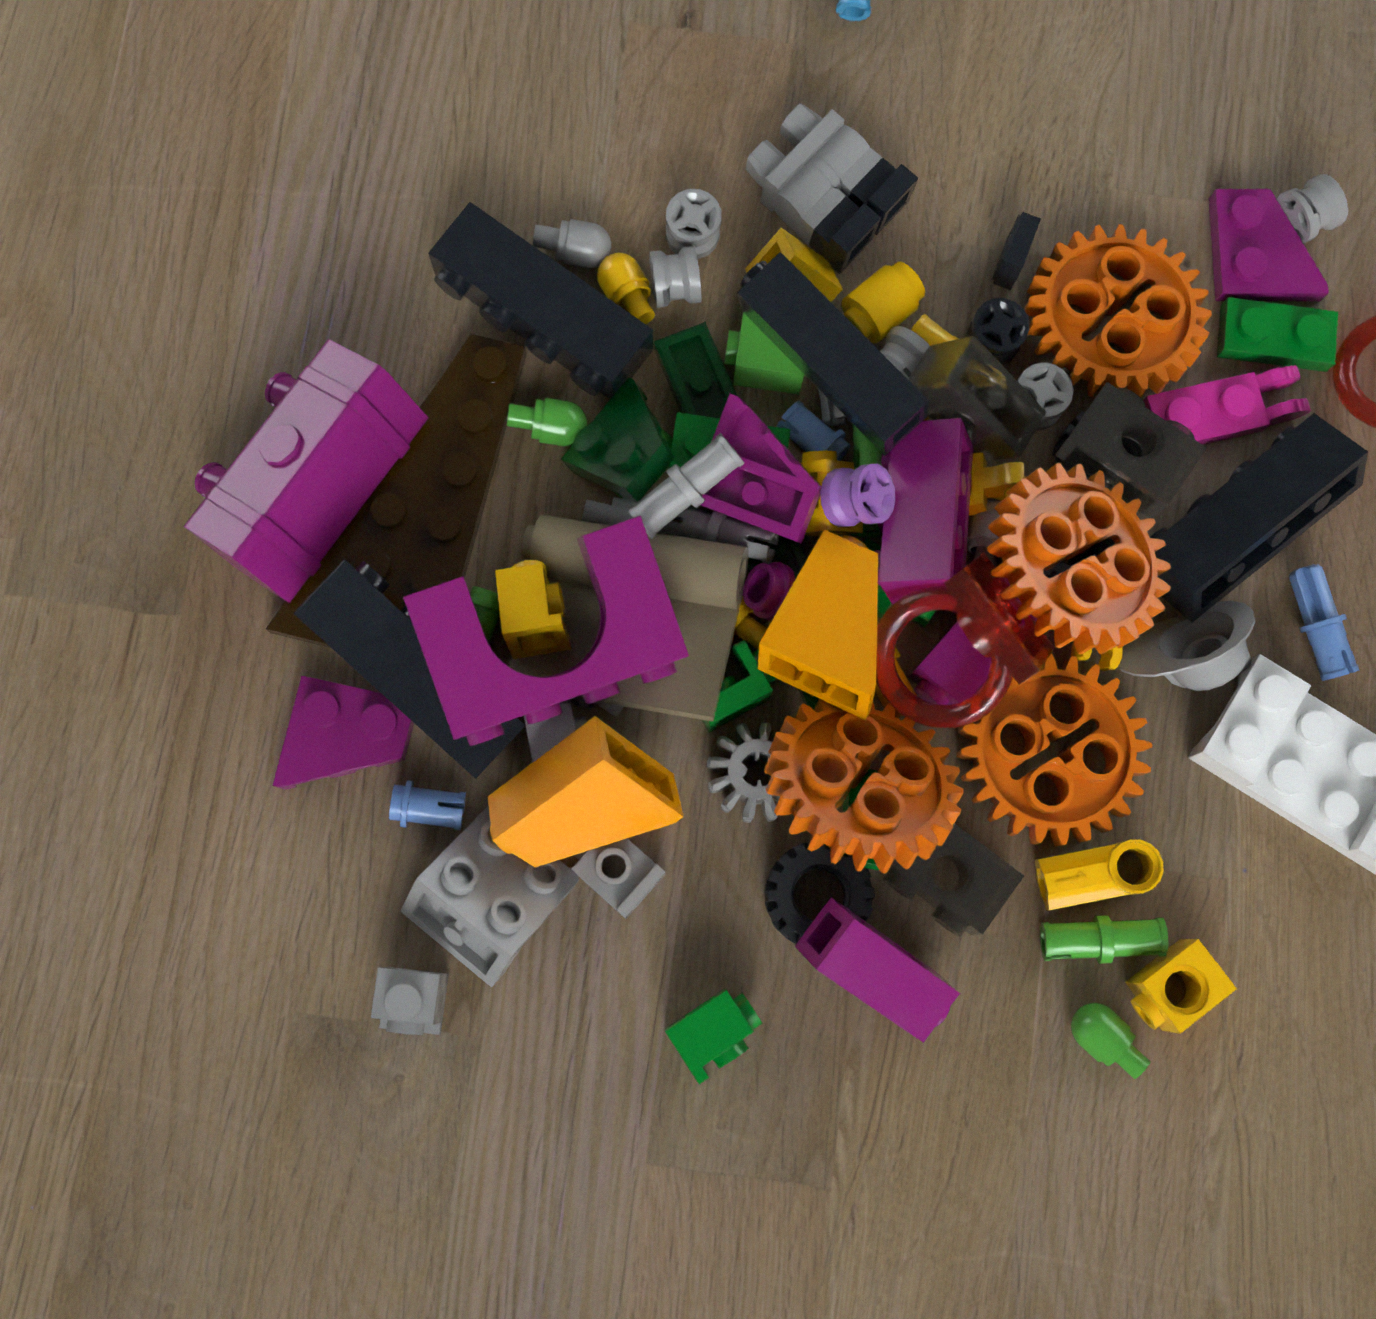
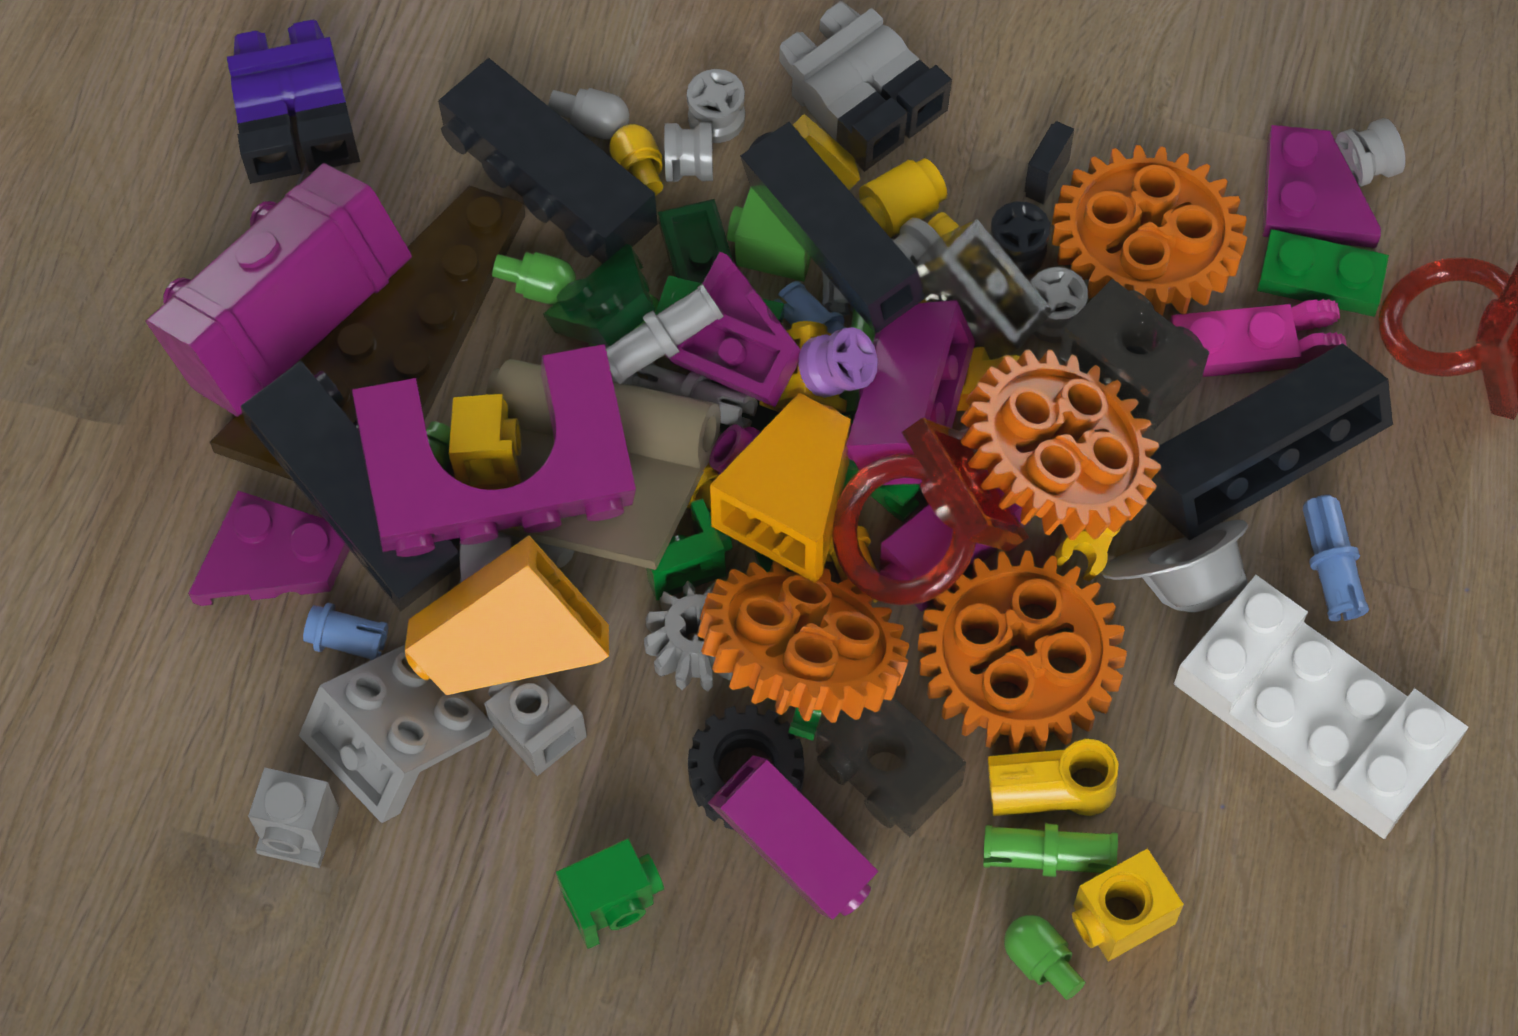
camera: 15 degrees right, 15 degrees down
(276, 245) = (286, 83): none -> hips

